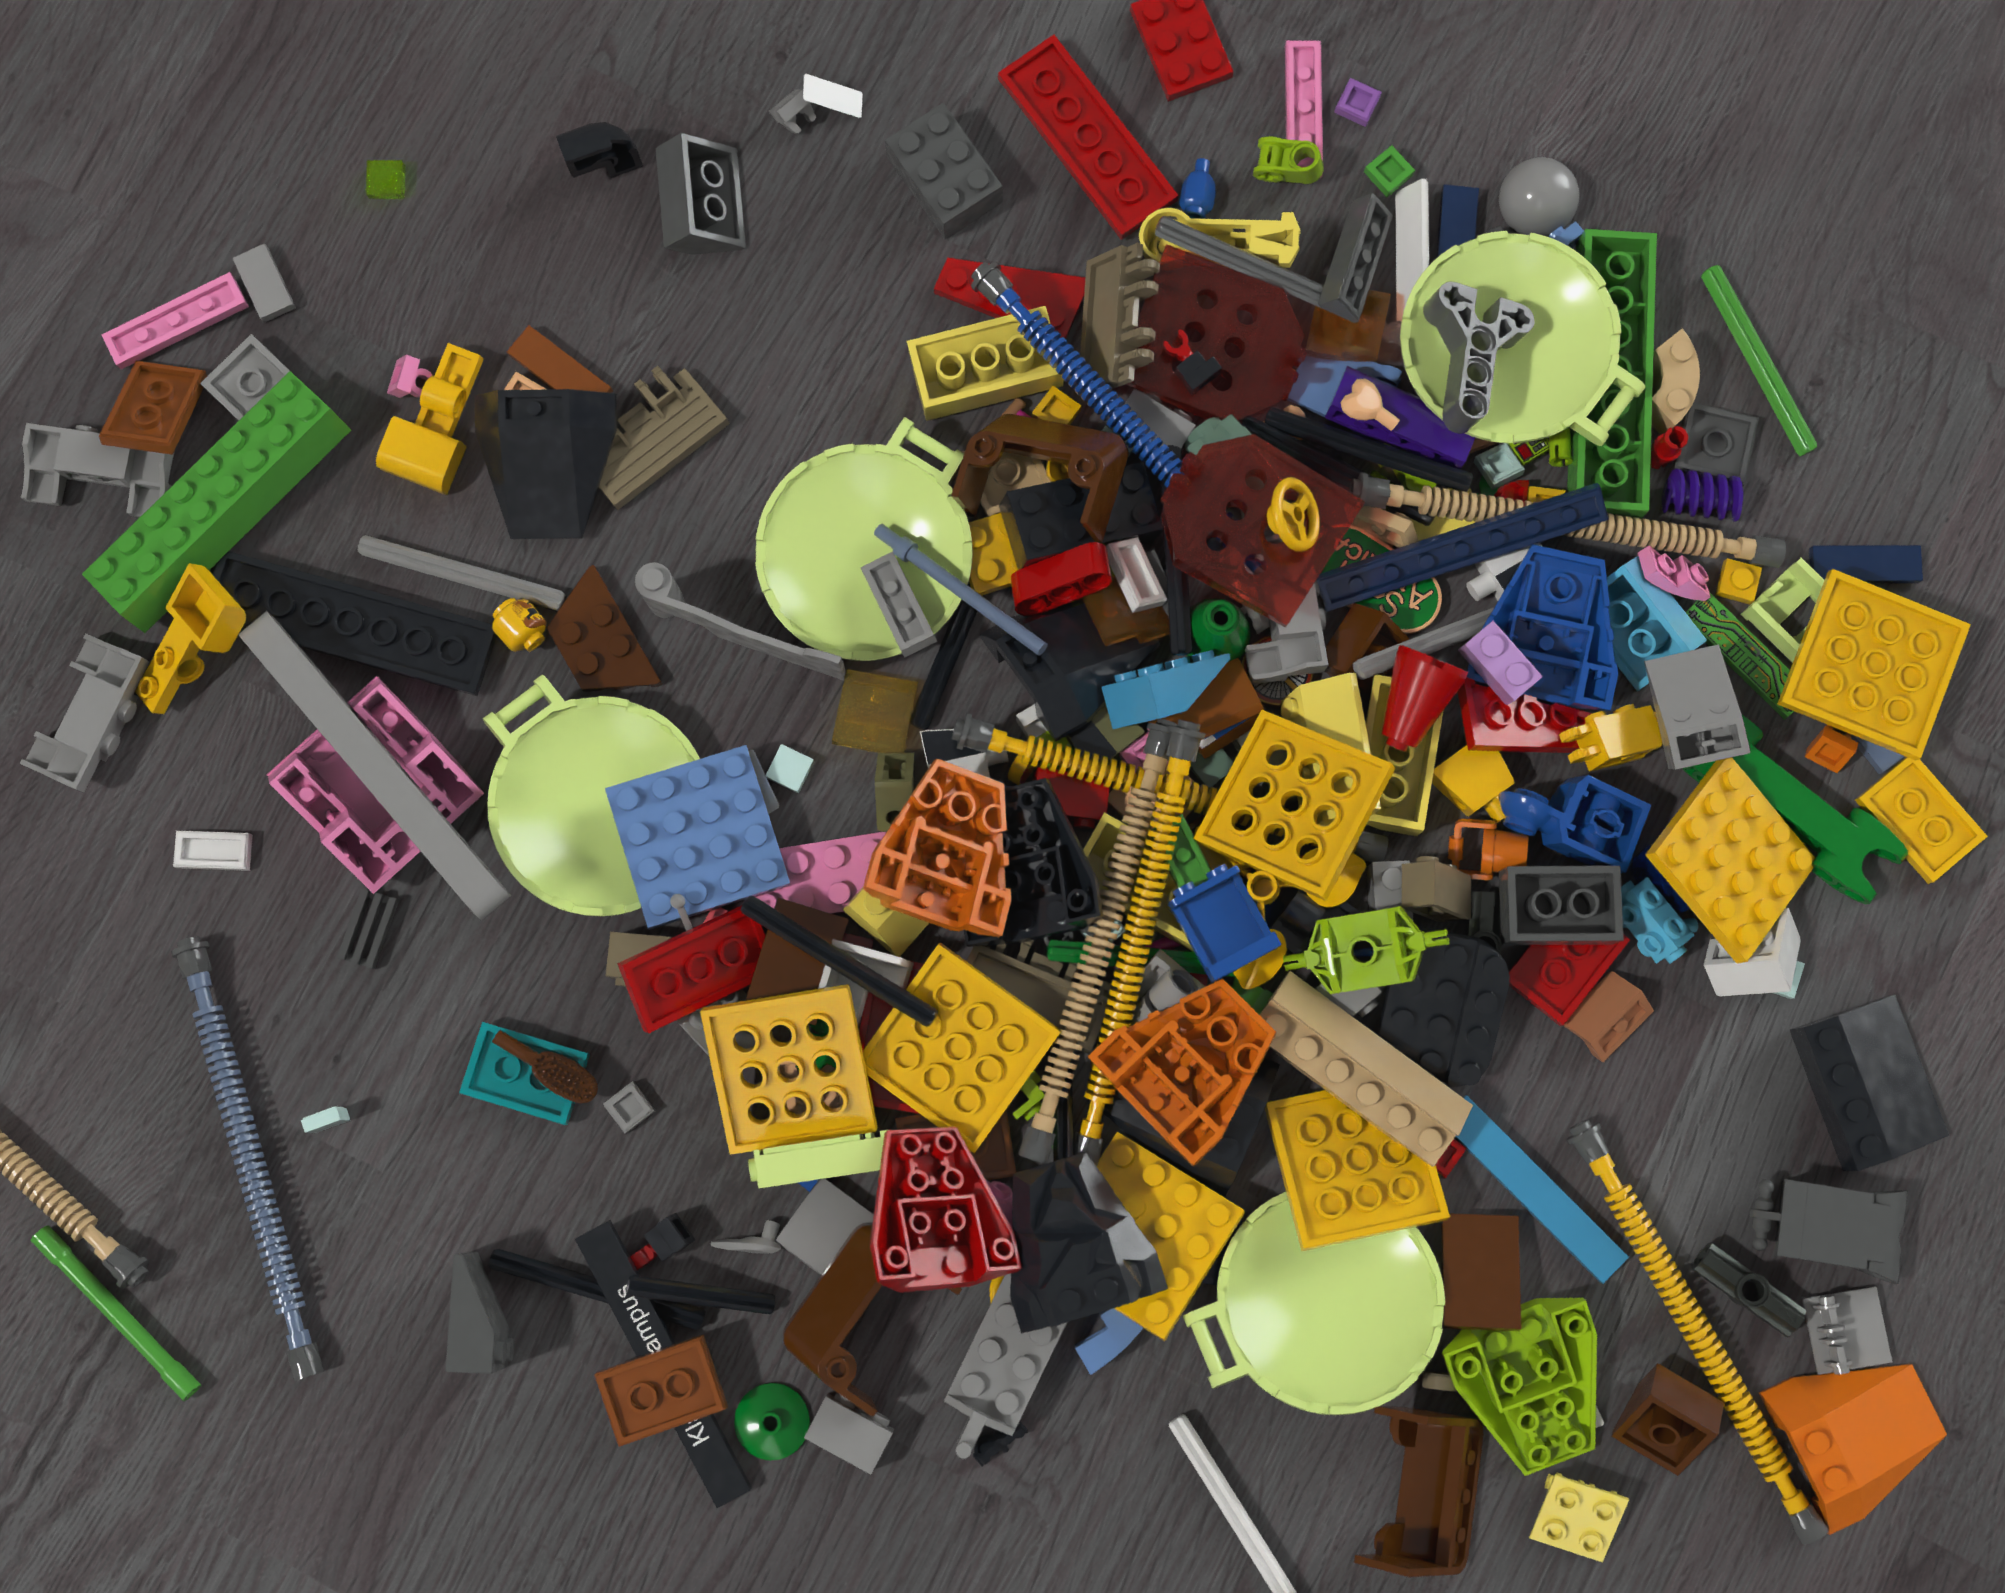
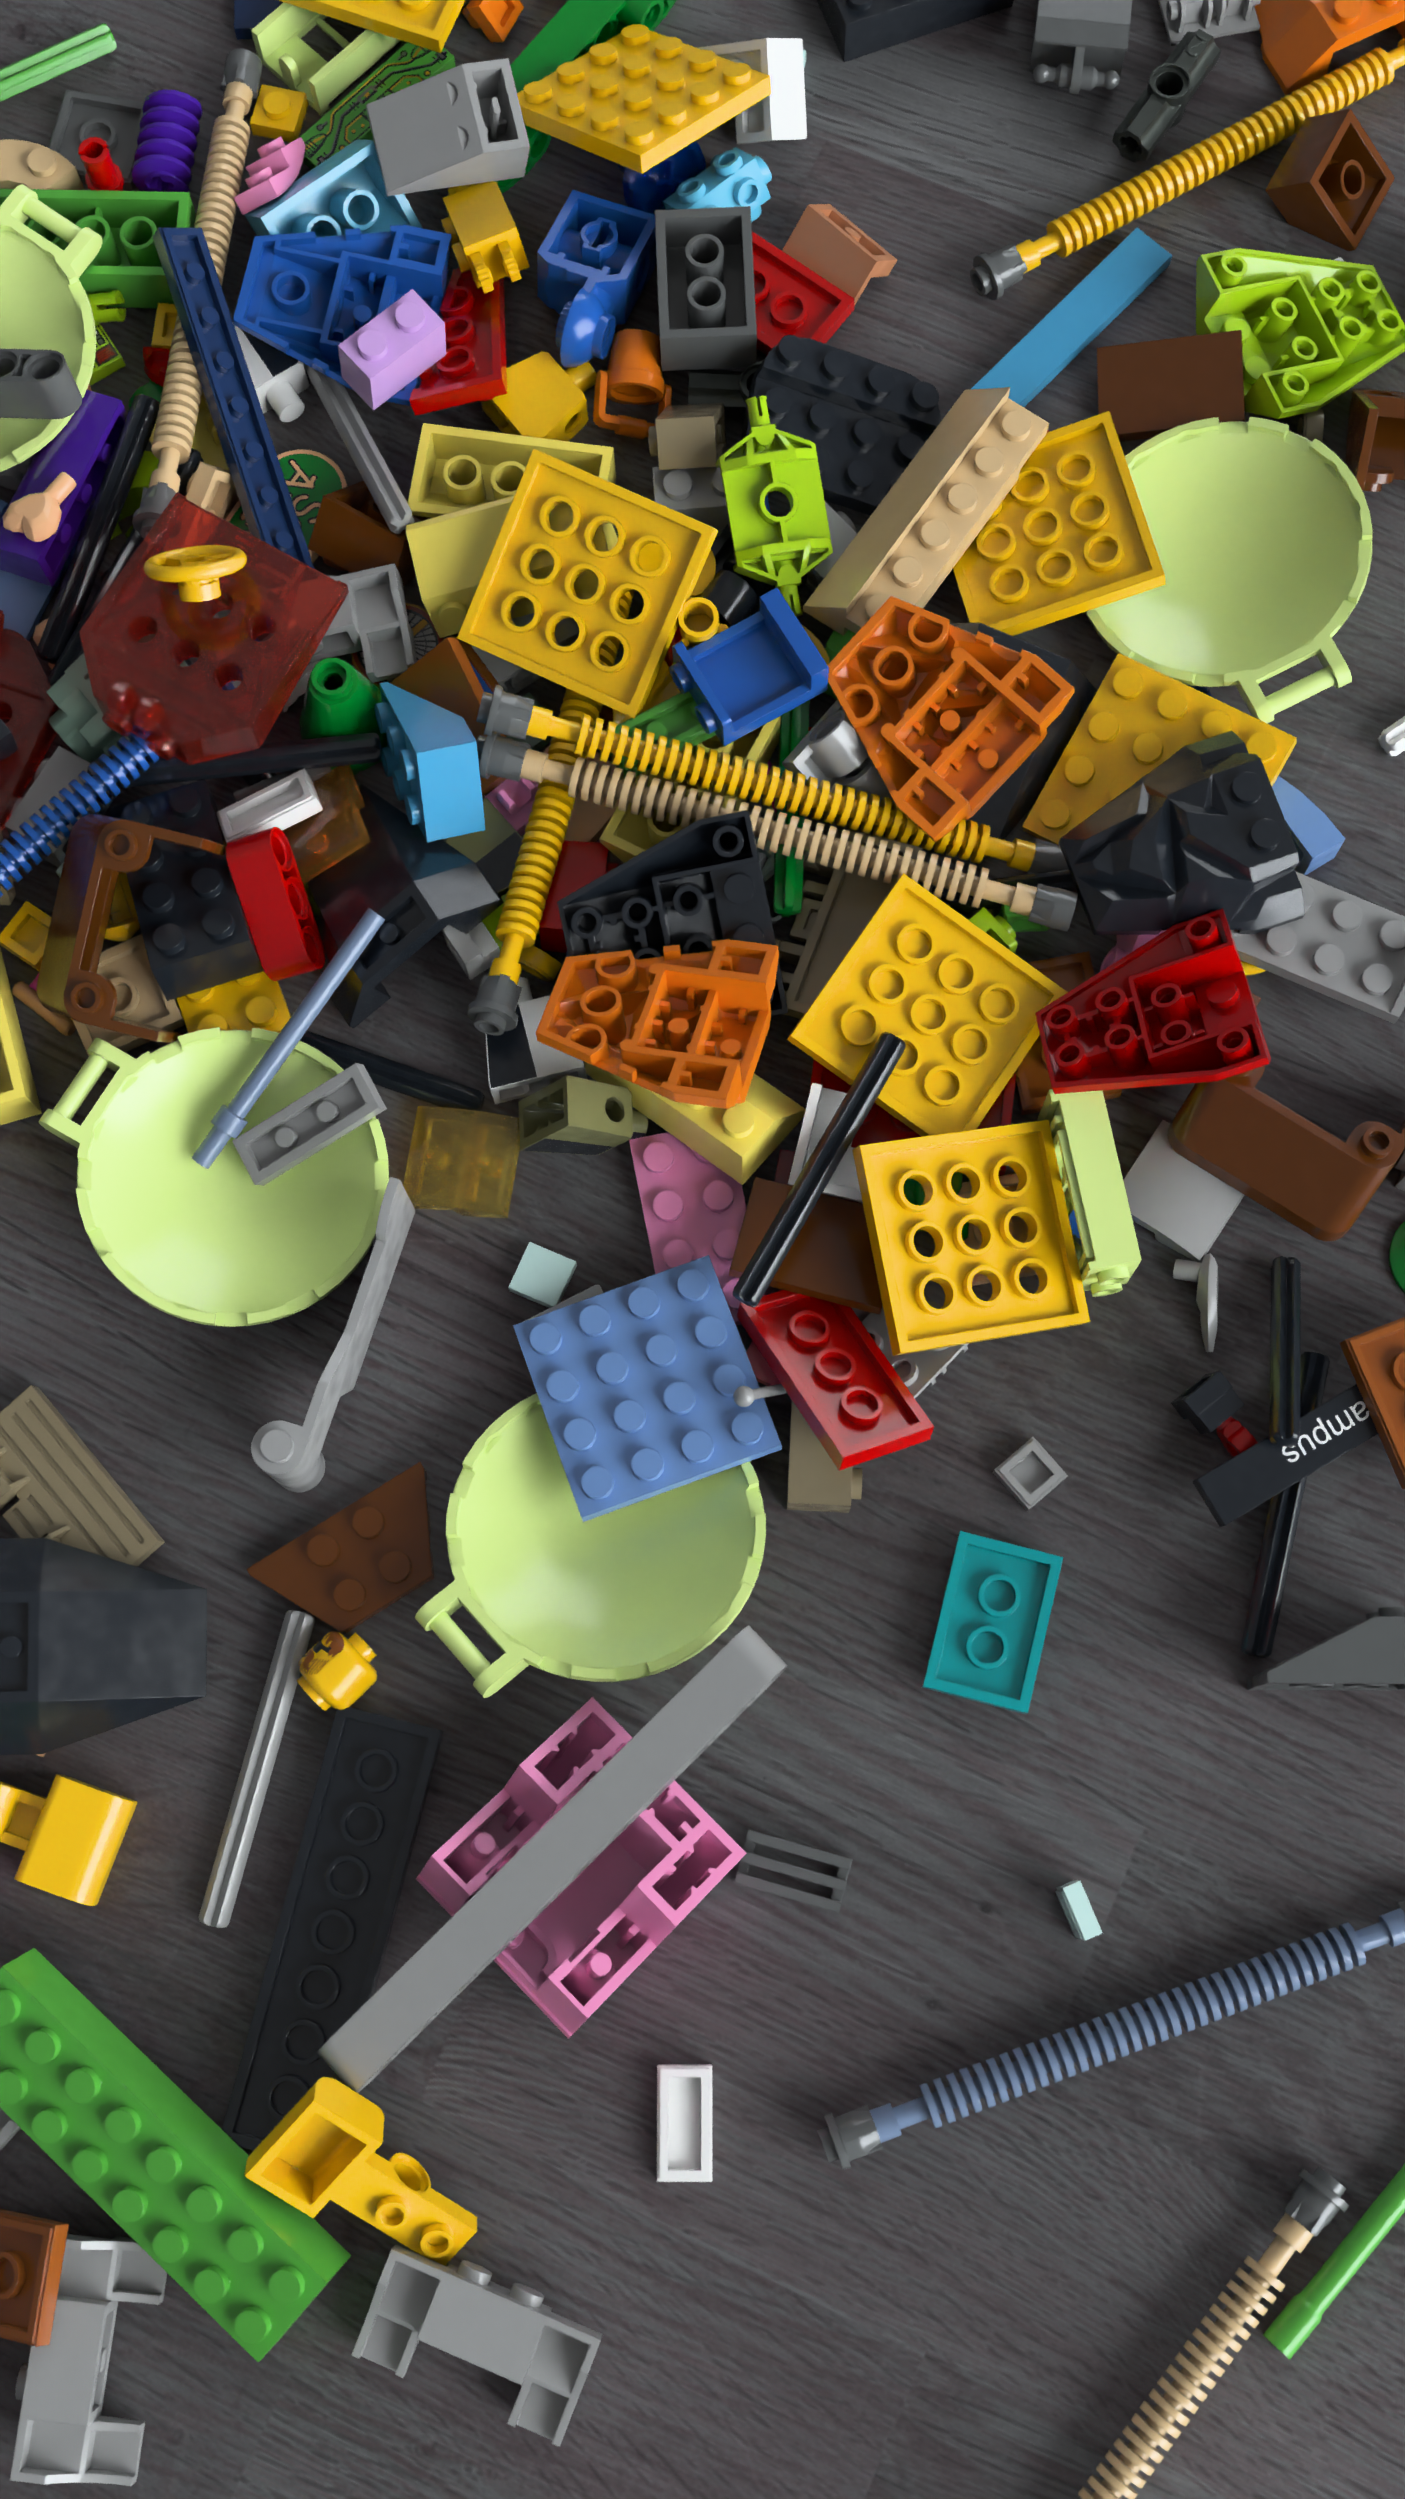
camera: 90 degrees left, 5 degrees down
(553, 1070) = (987, 1577): reddish brown piece -> none
(1417, 696) = (437, 442): red cone -> none
(1499, 465) = (122, 380): light aqua tile -> none

